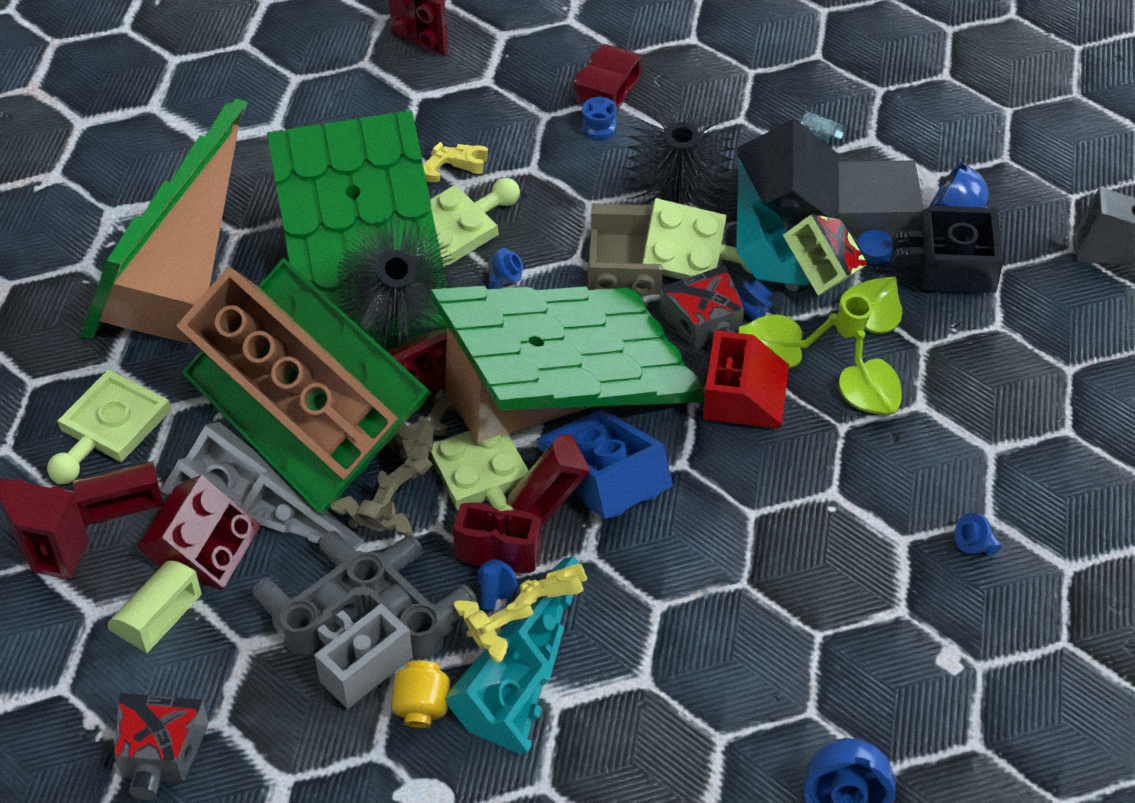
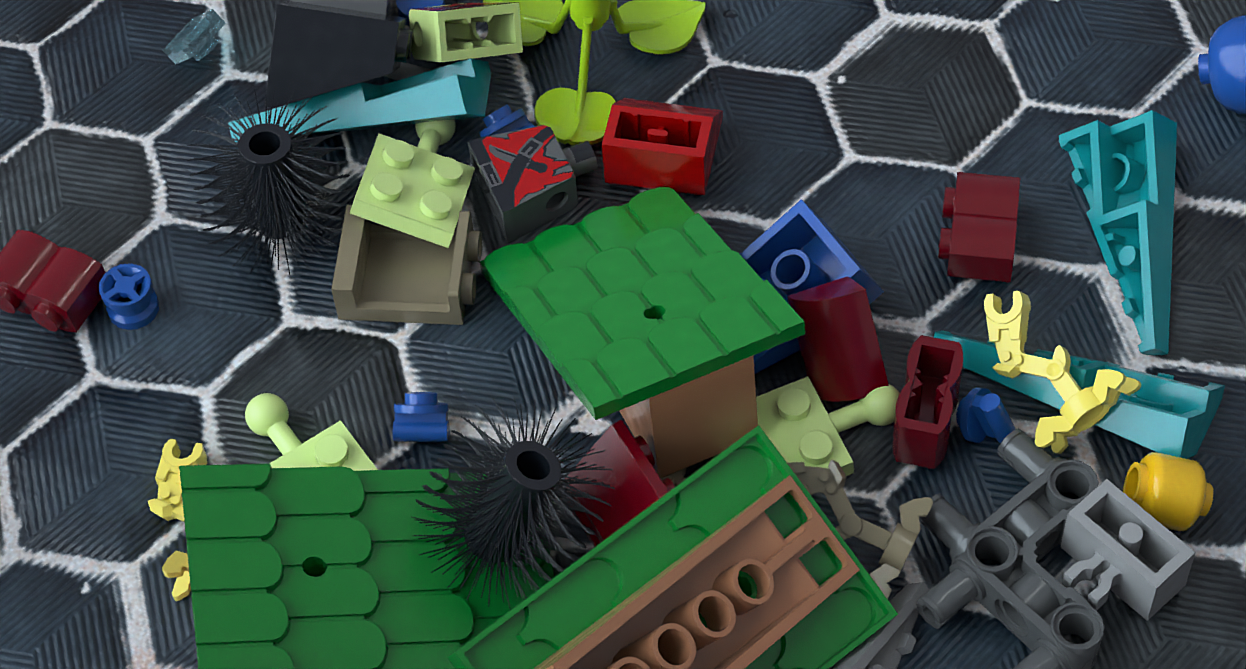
camera: 85 degrees left, 5 degrees up
(672, 586) = (982, 226): none -> dark red brick
(707, 695) = (1130, 195): none -> teal wedge

